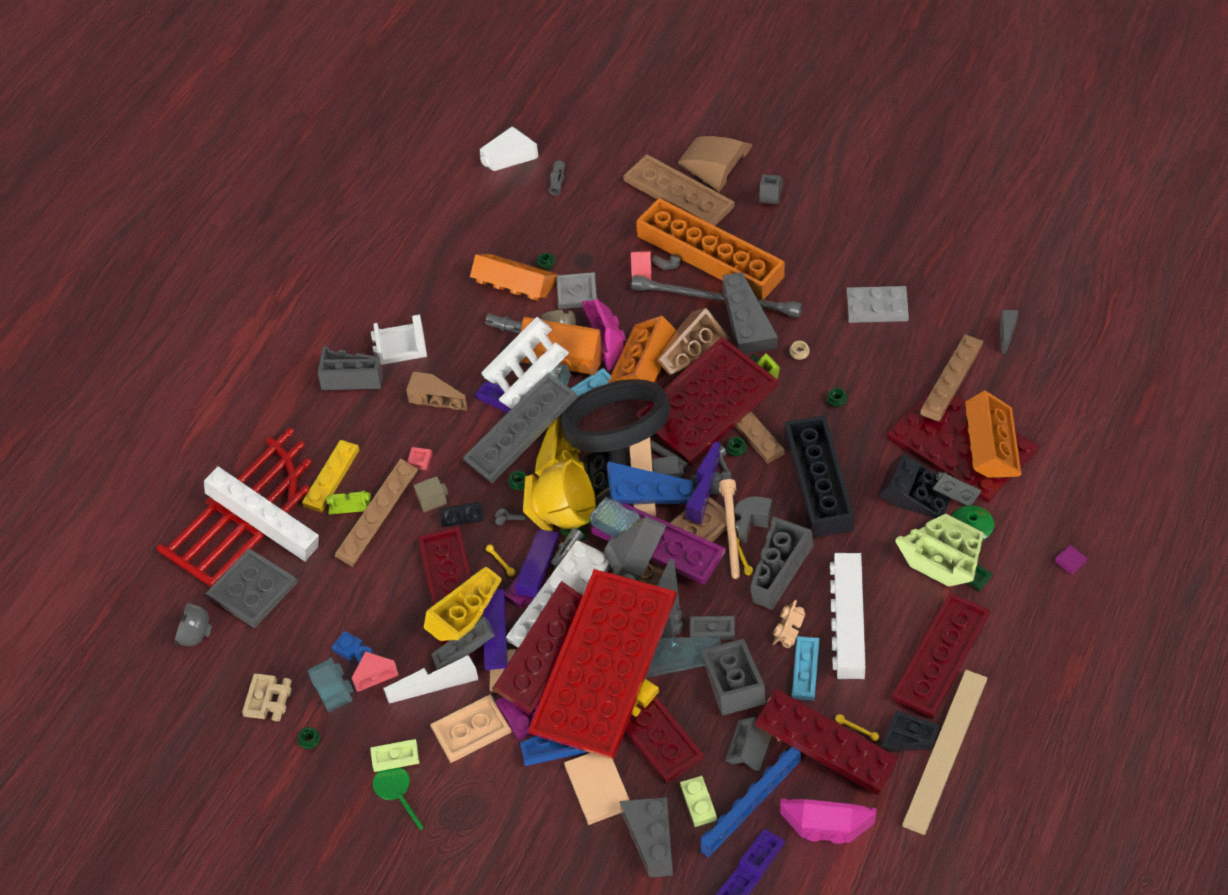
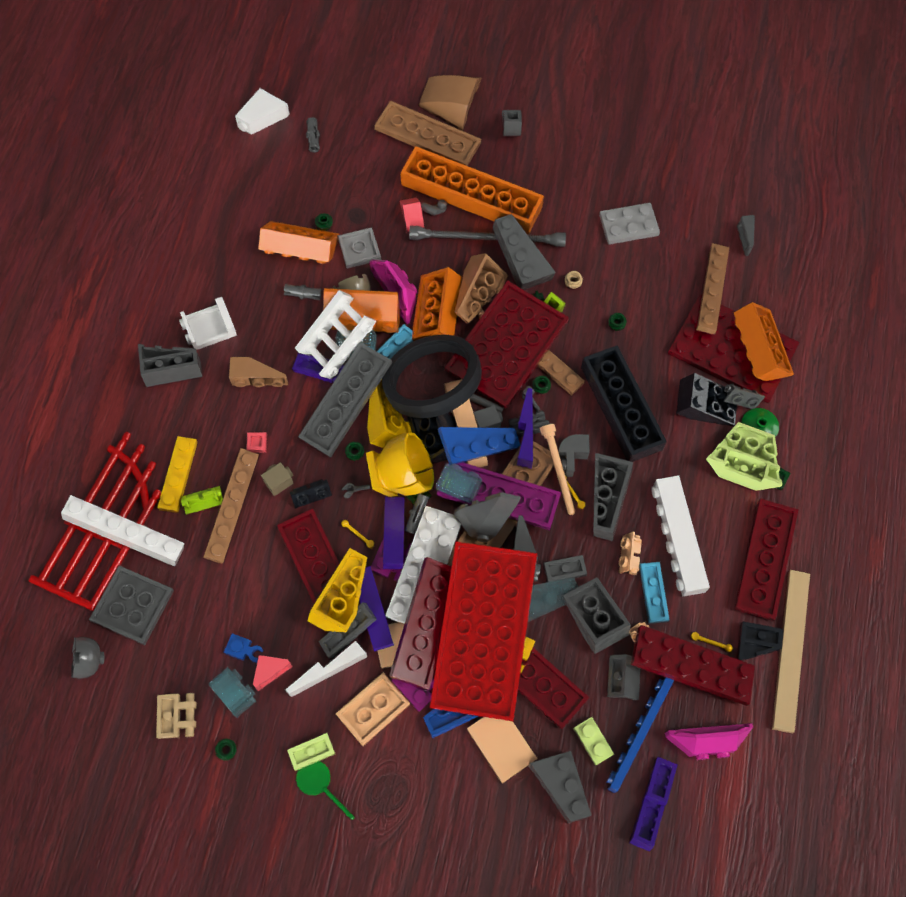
camera: 20 degrees left, 15 degrees up
(1071, 559) = (850, 447): magenta tile -> none

